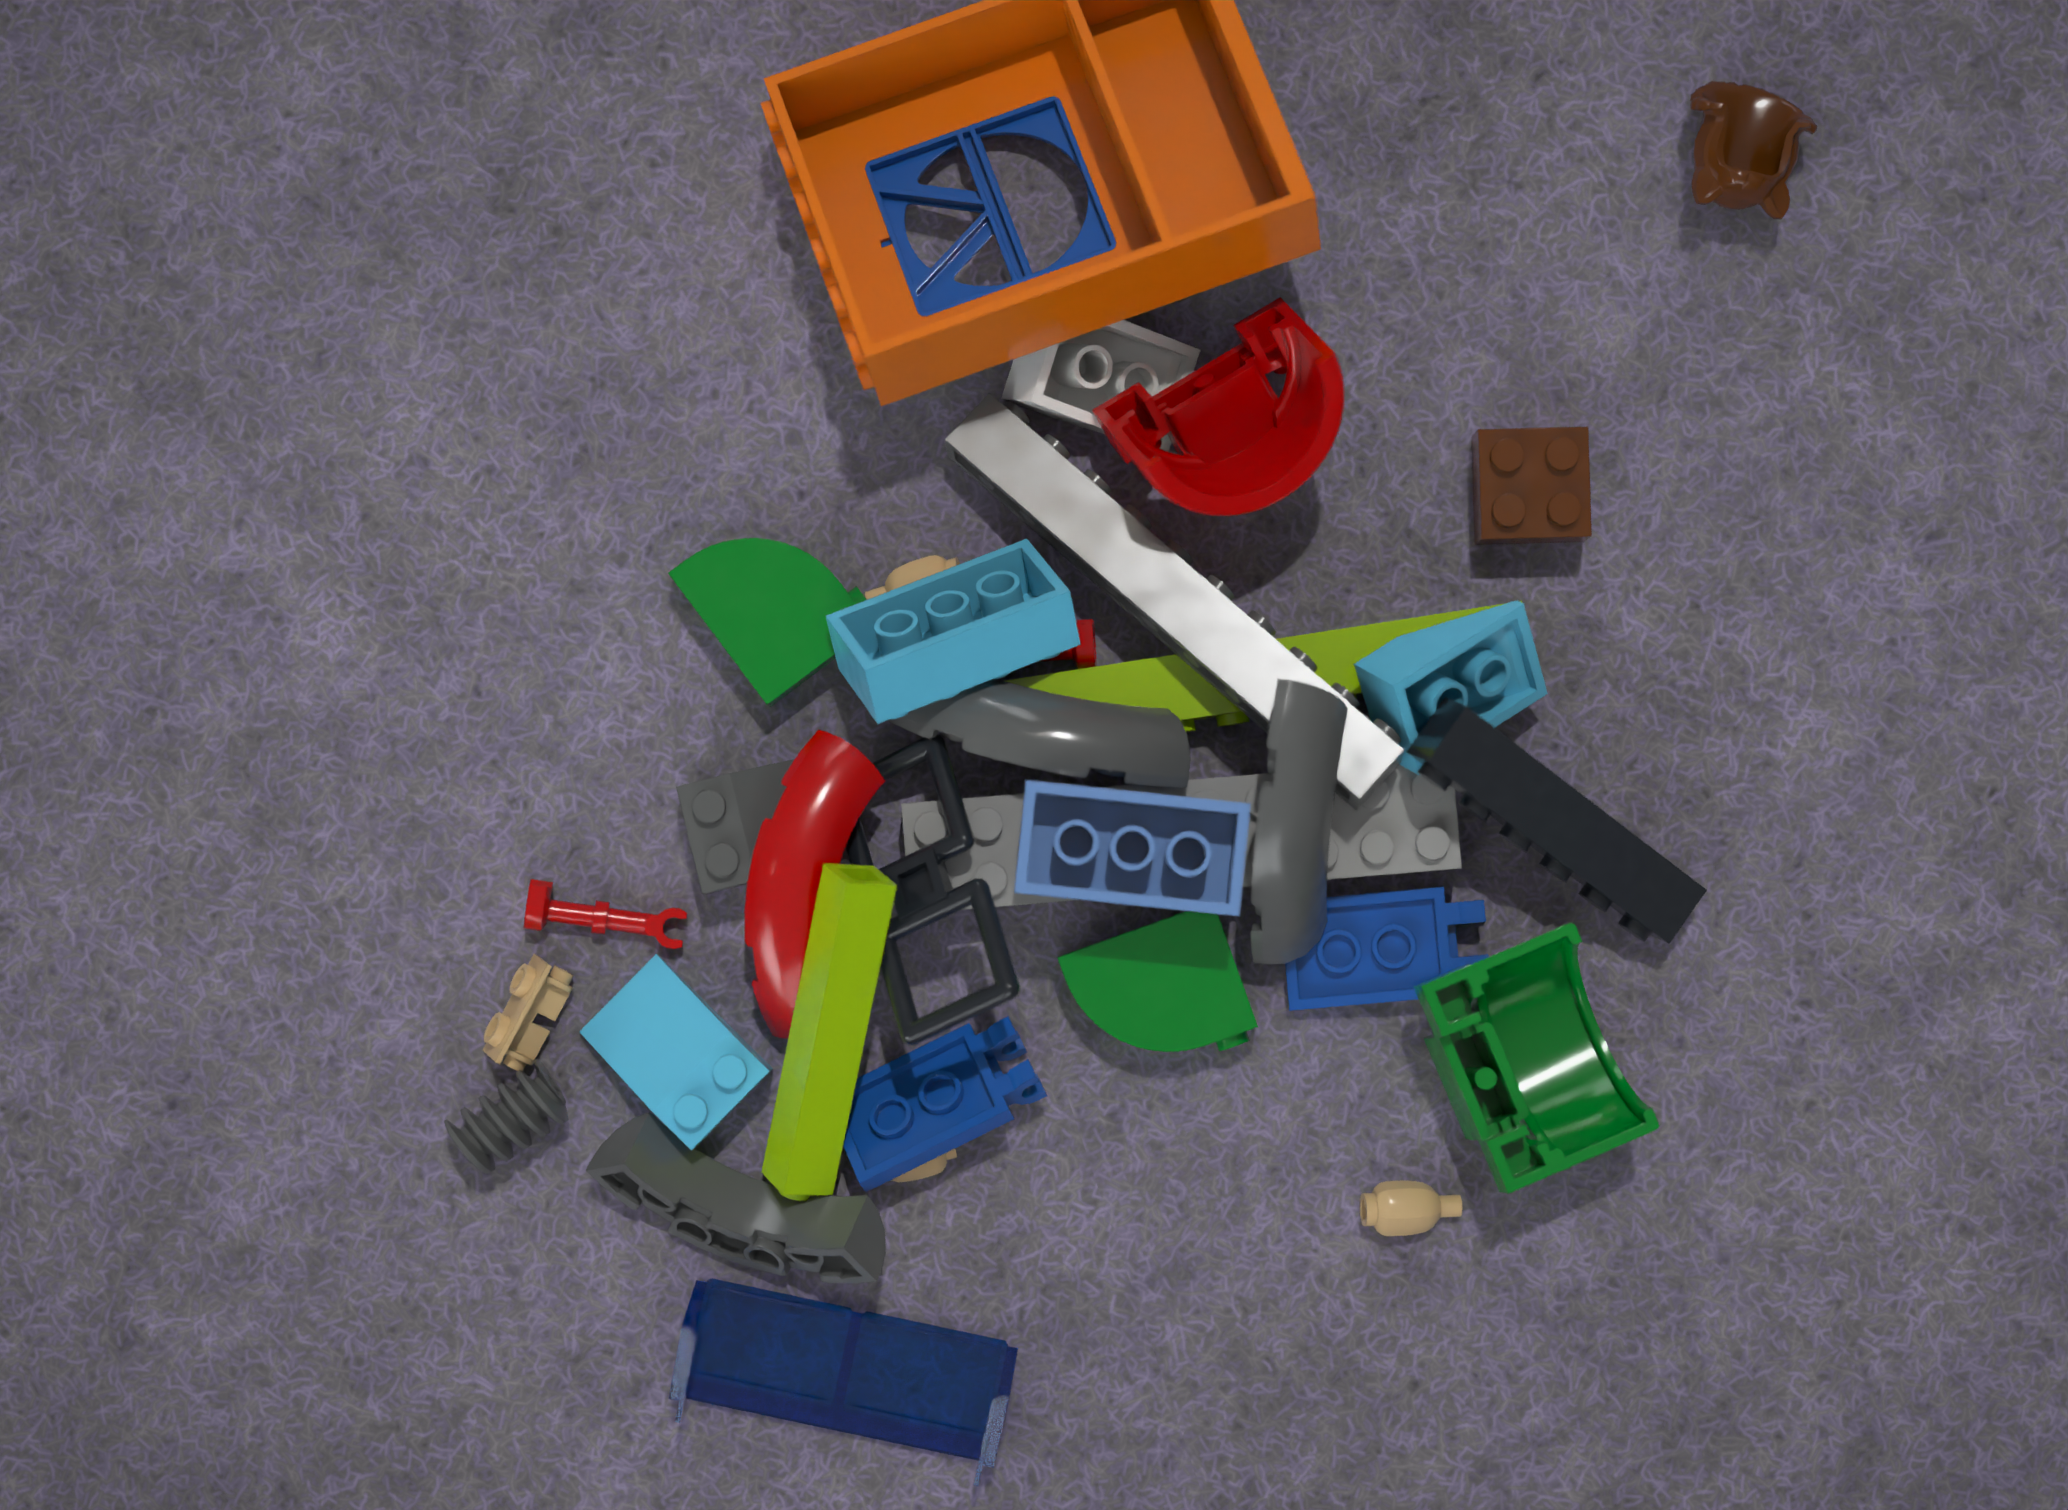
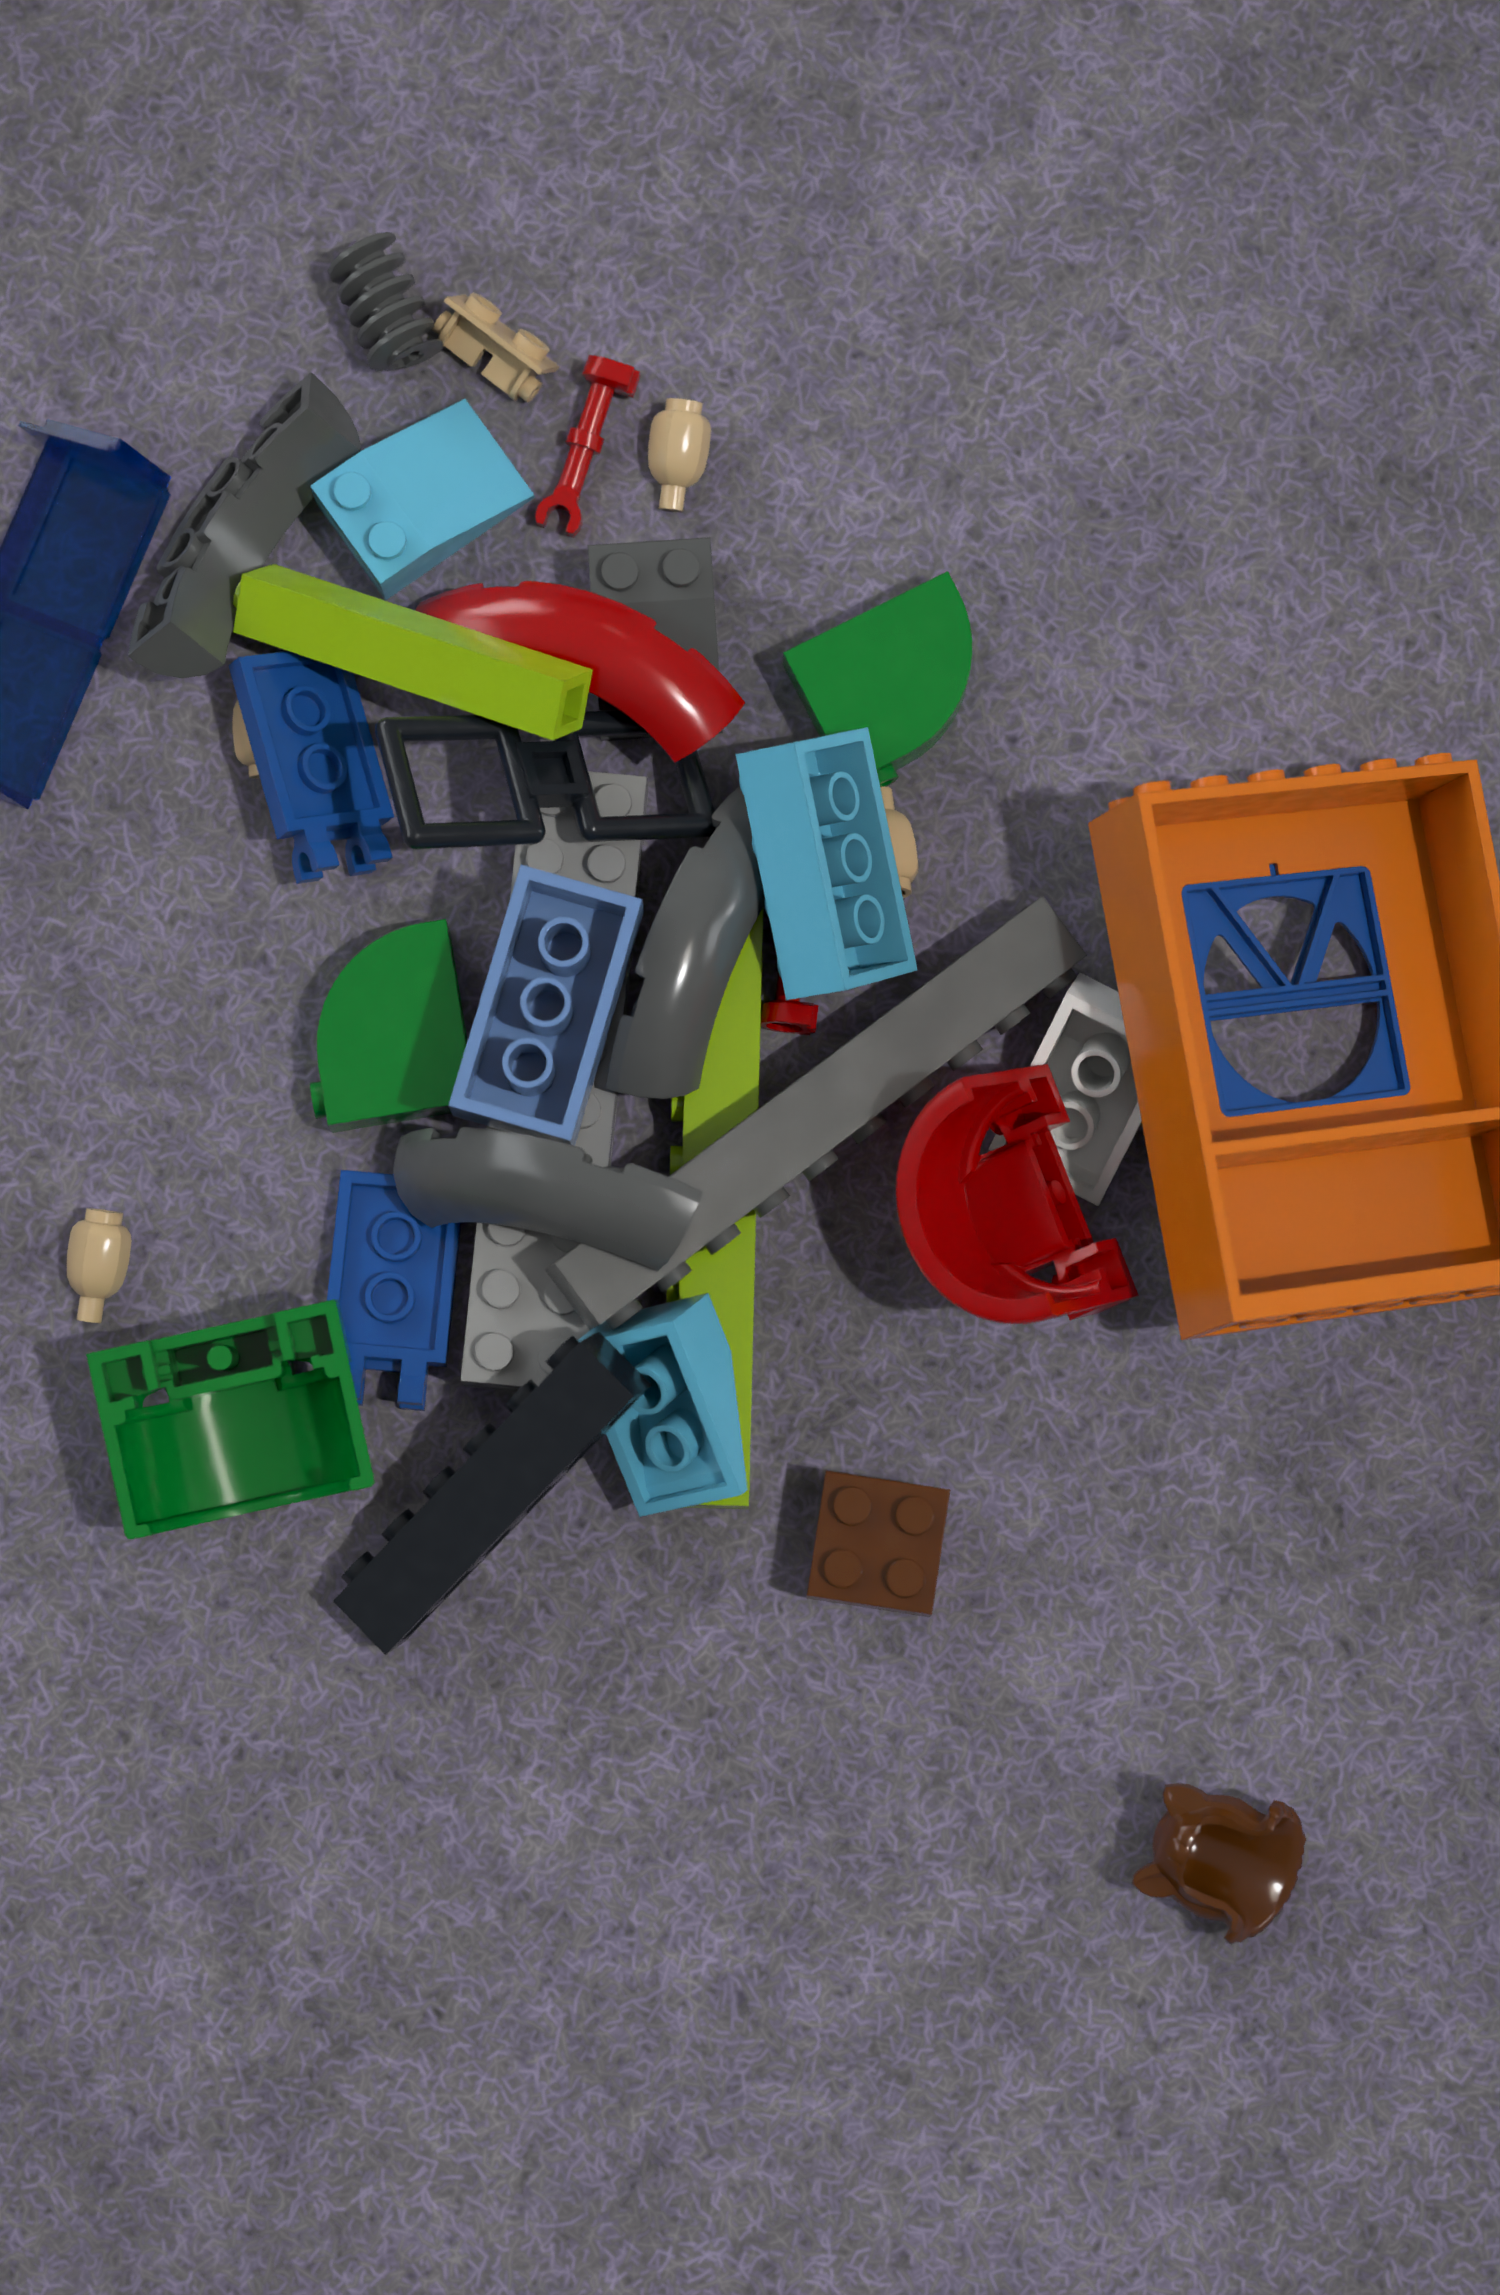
camera: 105 degrees right, 5 degrees down
(594, 833) = (678, 450): none -> tan plant

